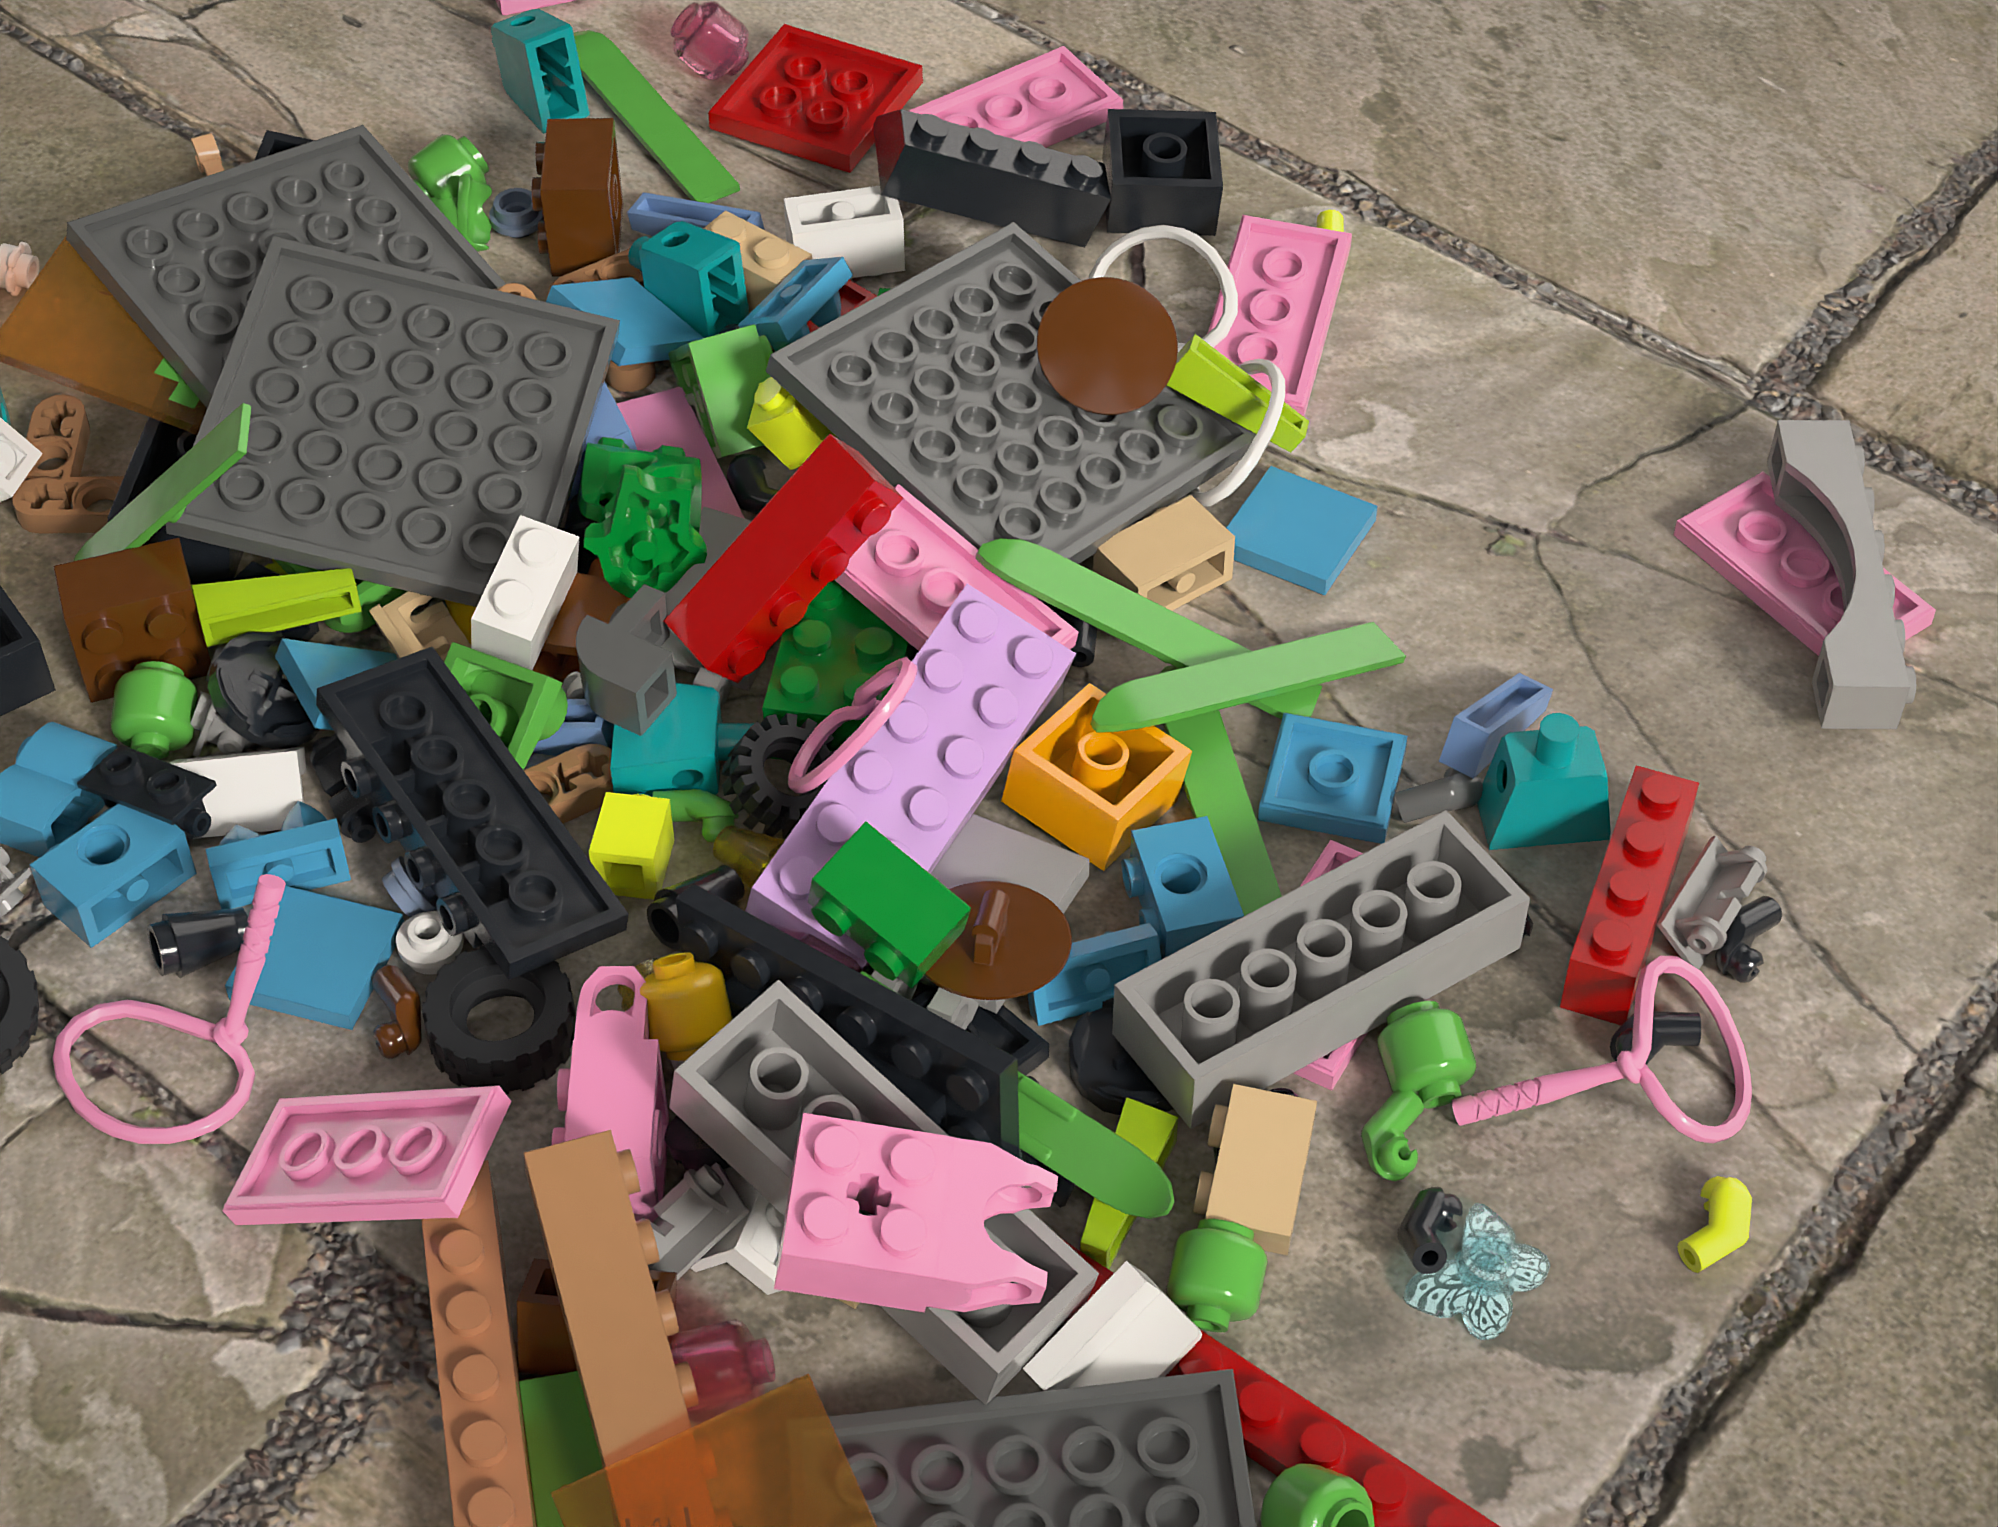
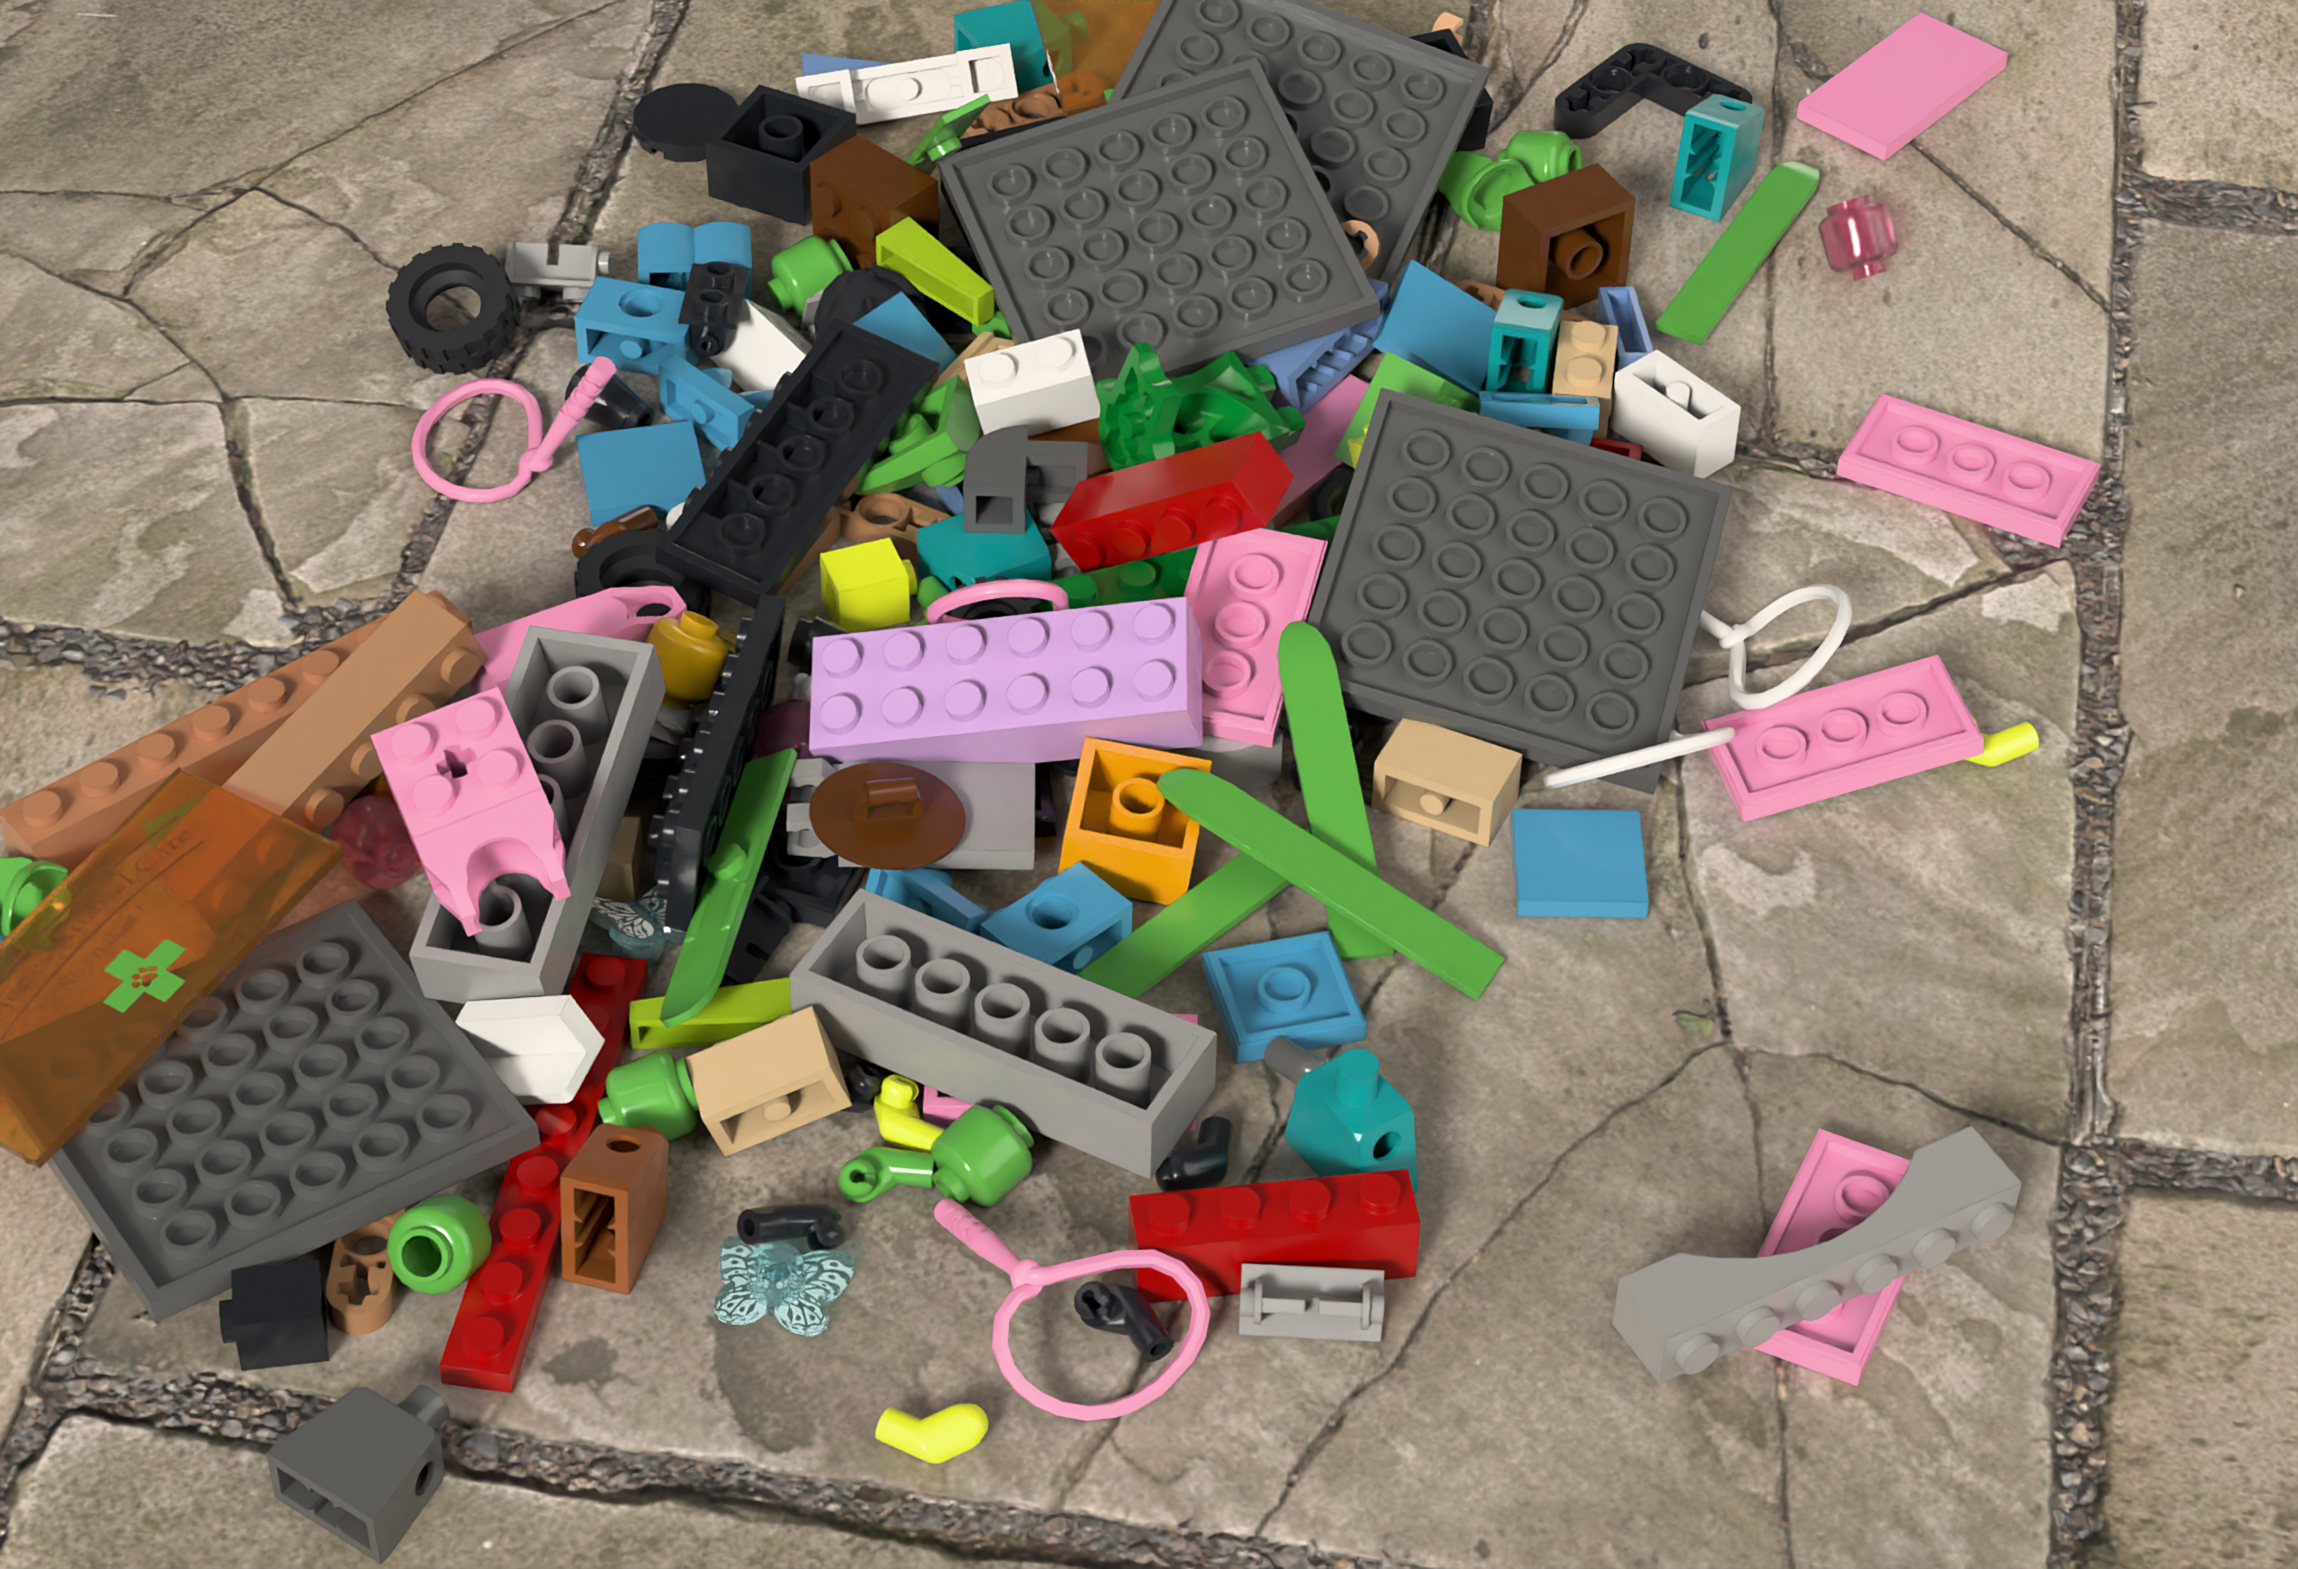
camera: 60 degrees right, 5 degrees down
(368, 1157) = (444, 558): bright pink tile -> none
(445, 50) = (1652, 77): none -> black beam
(815, 97) = (1863, 337): red plate -> none
(887, 906) = (836, 714): green brick -> none
(989, 176) = (1821, 467): black slope -> none
(1107, 345) = (1617, 603): reddish brown shield -> none
(1162, 170) = (1957, 583): black brick -> none
(1231, 392) = (1671, 713): lime piece -> none
(1341, 1102) = (900, 1118): none -> neon yellow arm
(1348, 1347) = (619, 1179): none -> dark orange torso
(1480, 726) = (1429, 1072): medium blue piece -> none
(1751, 921) = (1289, 1340): black arm -> none

